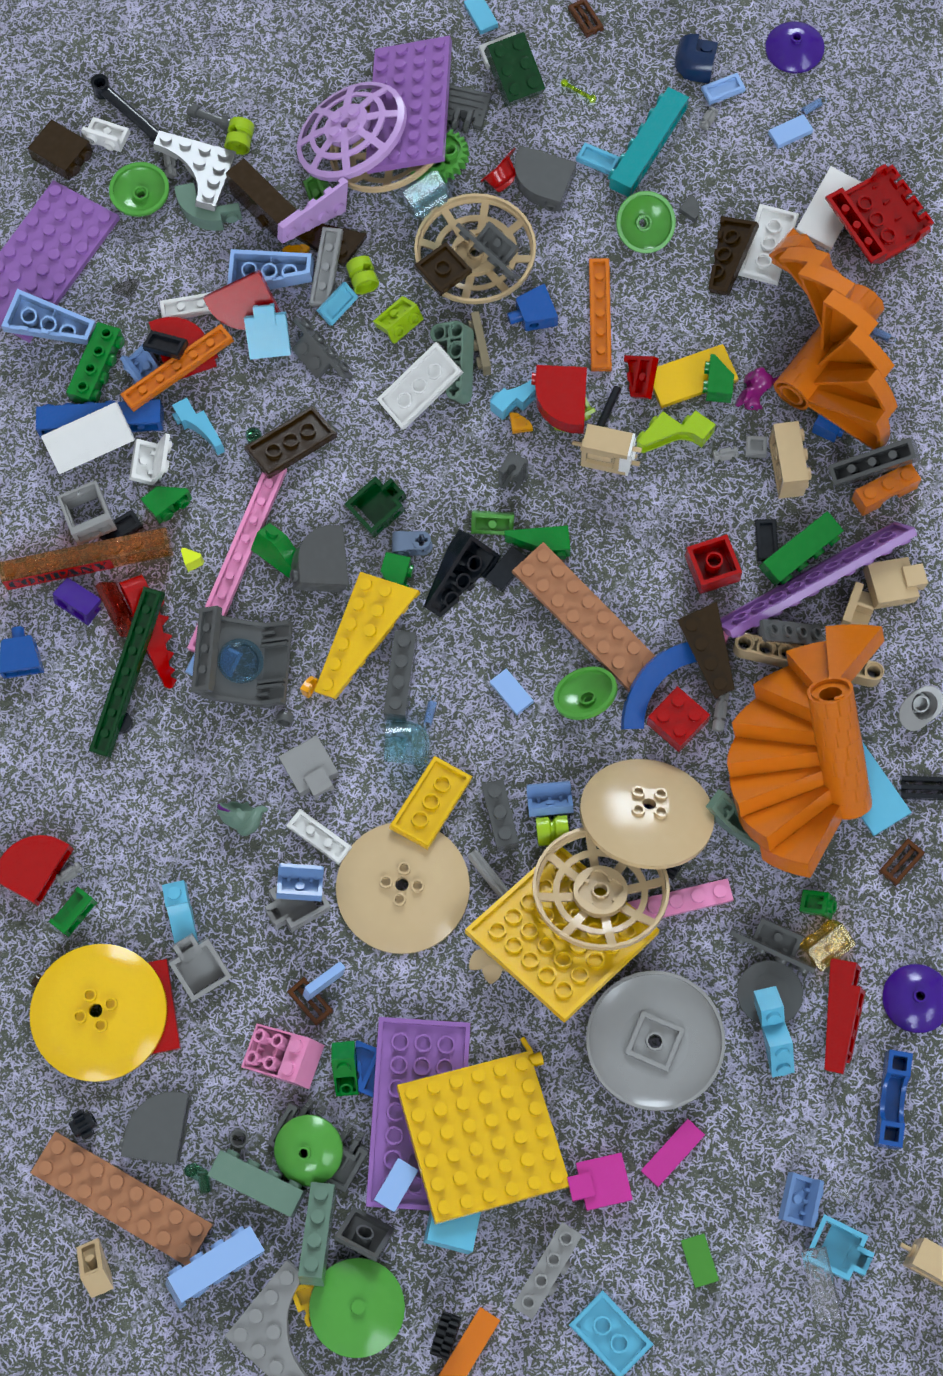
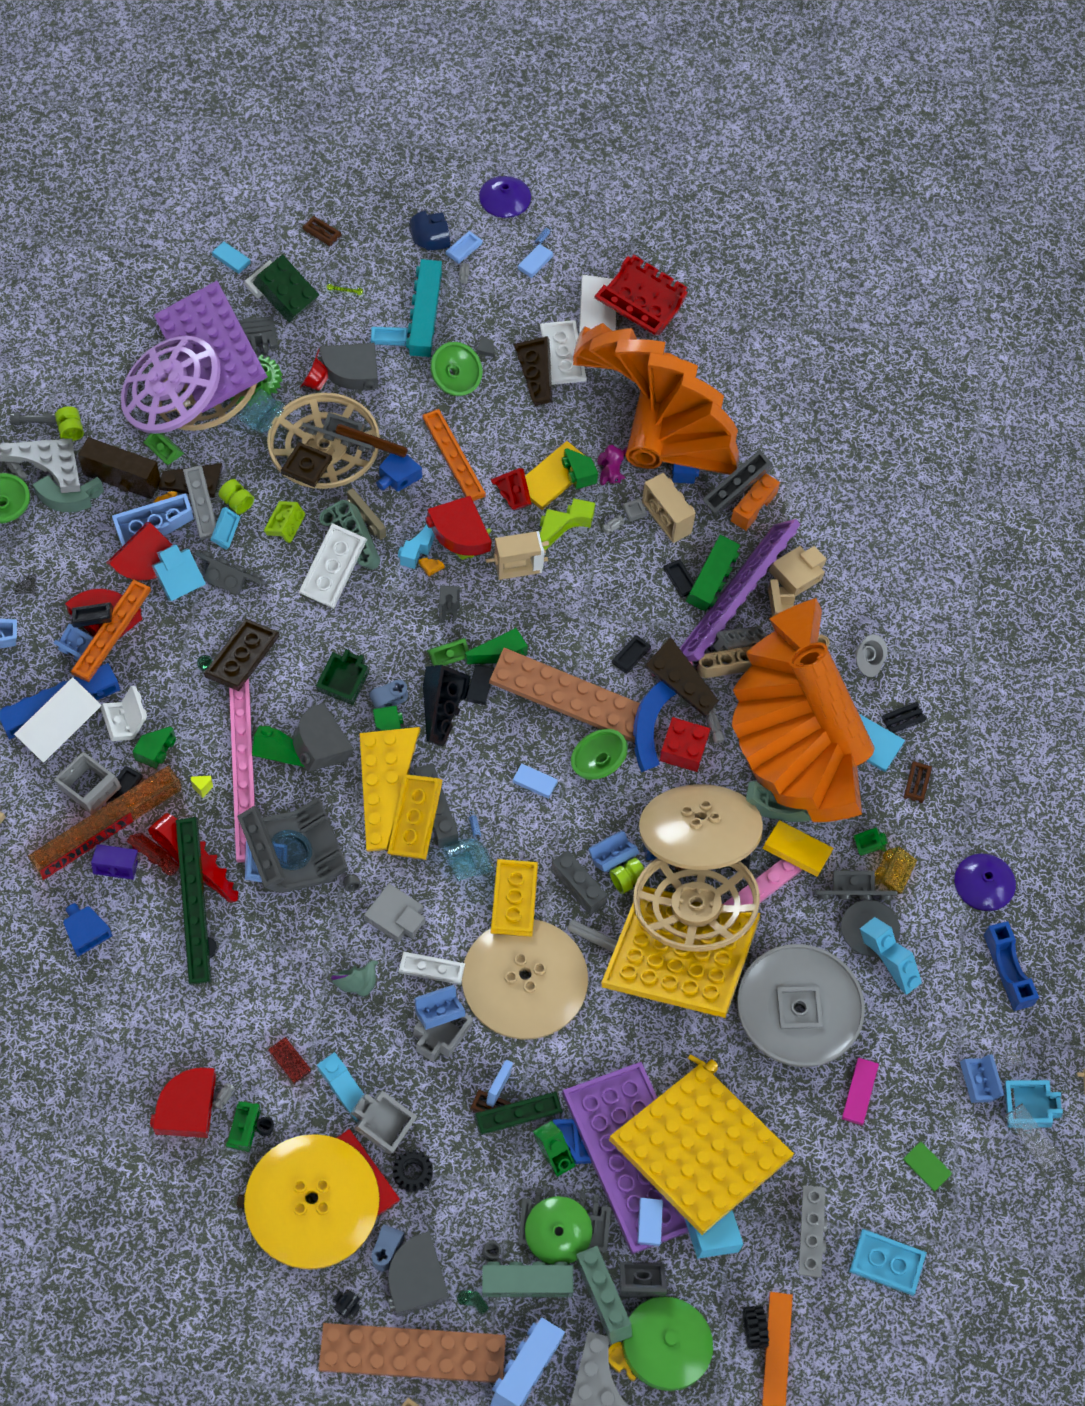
camera: 35 degrees left, 10 degrees down
(94, 916) = (266, 1123): none -> black hinge
(95, 364) = (32, 657): green brick -> none
(144, 867) = (289, 1060): none -> clear red plate
(145, 1086) = (387, 1244): none -> sand blue piece
(184, 306) = (91, 579): white tile -> none
(192, 1020) = (412, 1158): none -> black tyre
(198, 422) = (153, 670): medium azure slope -> none
(283, 1055) = (494, 1162): bright pink slope -> none
(309, 686) = (360, 848): light orange tile -> none
(315, 212) = (172, 460): lavender wing -> none
(328, 1018) = (517, 1113): none -> dark green tile
(372, 679) = (415, 816): none -> yellow tile
(490, 968) = (632, 1007): tan plate -> none
(519, 269) = (371, 440): none -> reddish brown axle
(600, 1182) = (816, 1141): dark pink piece -> none
(608, 406) = (498, 521): black bar -> none
(674, 600) = (631, 654): none -> black tile
(713, 564) = (649, 611): red brick -> none
(738, 877) = (798, 848): none -> yellow tile
(843, 1014) = (936, 917): red wedge -> none

